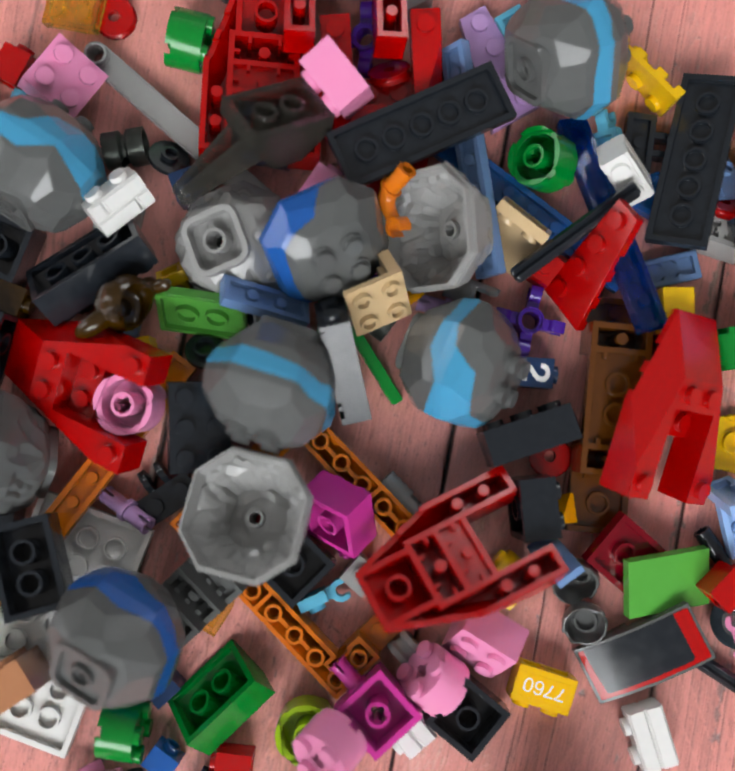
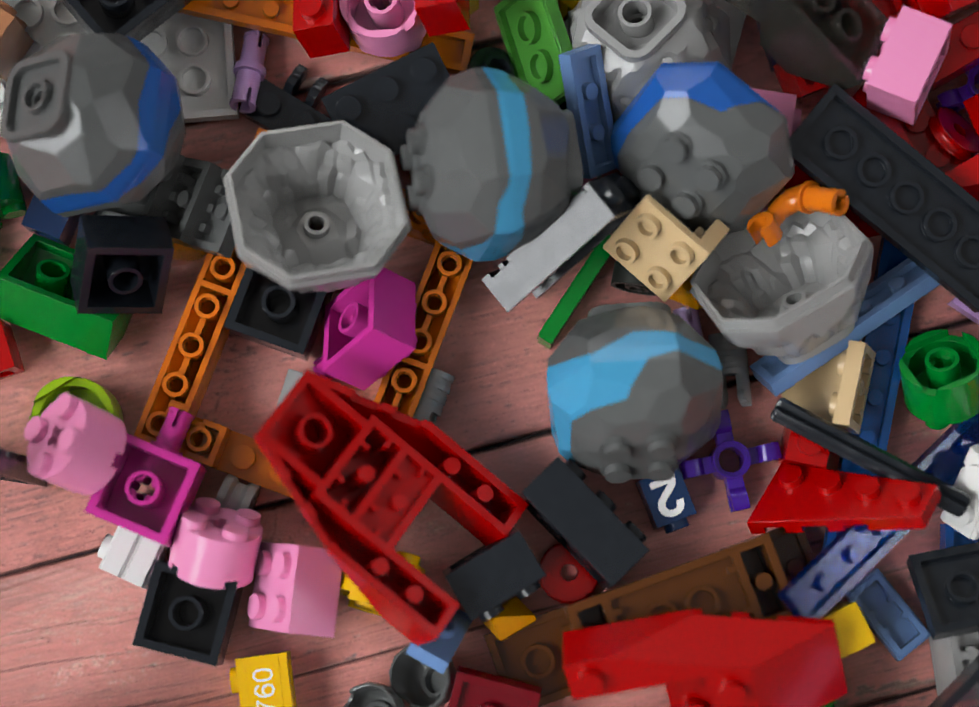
camera: 65 degrees right, 5 degrees down
(219, 658) = (121, 264): none -> black brick
(315, 600) = (245, 357): medium azure plate -> none

